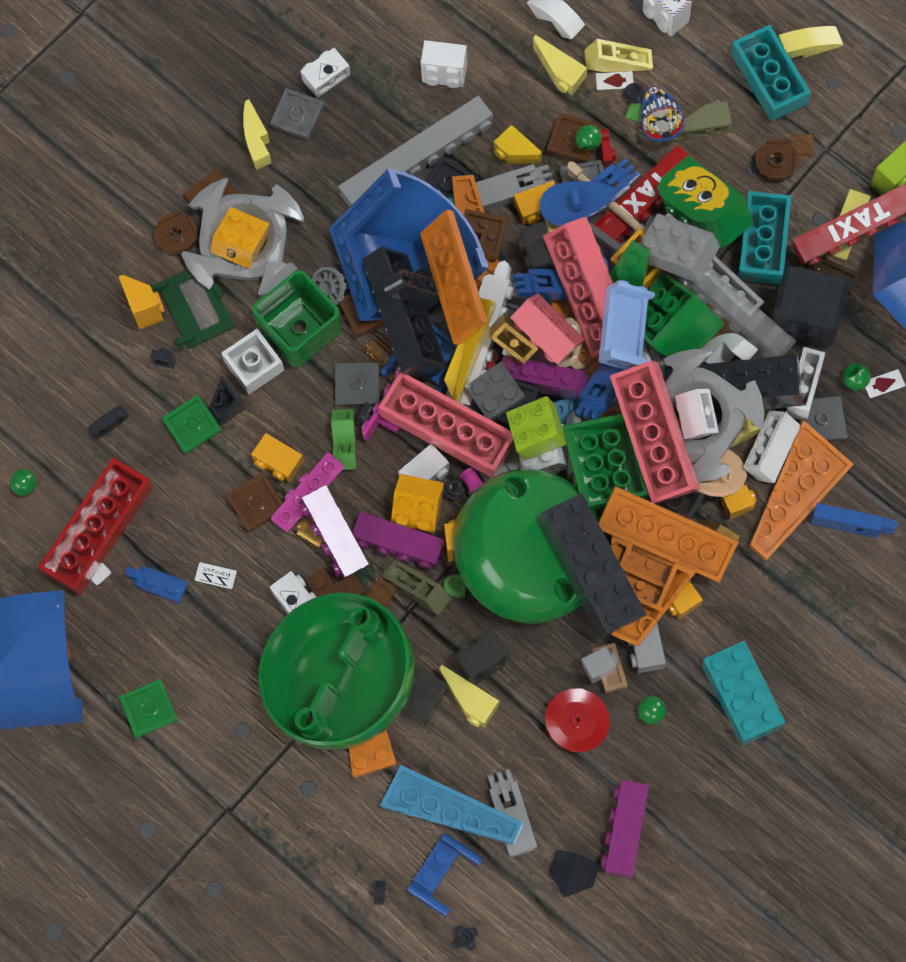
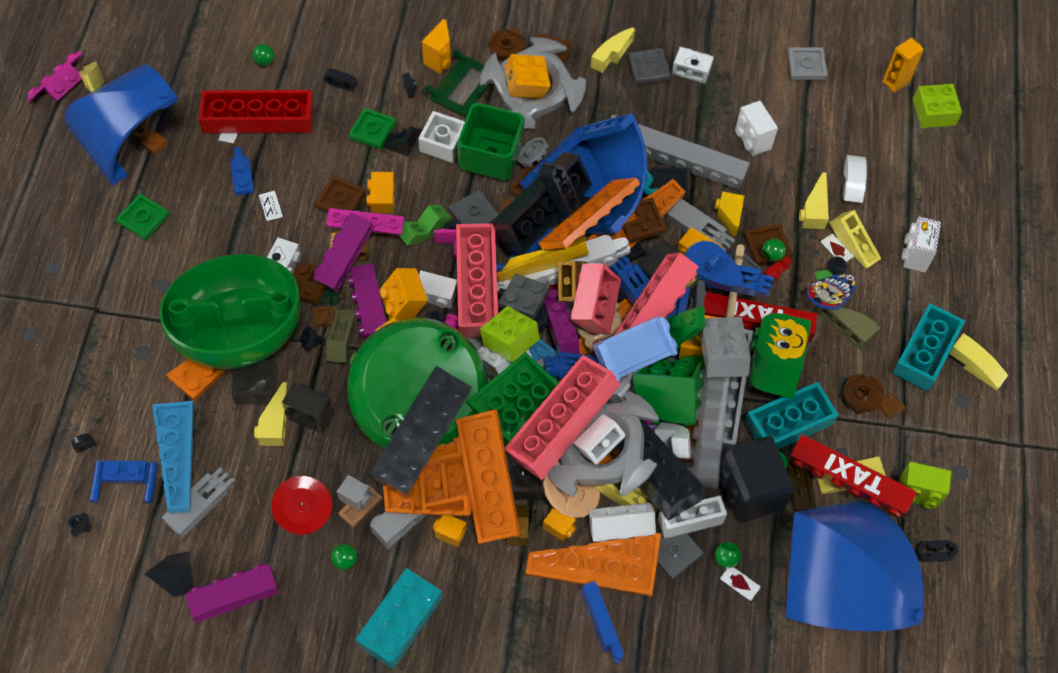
camera: 50 degrees right, 10 degrees down
(404, 617) = (309, 338): none -> black piece

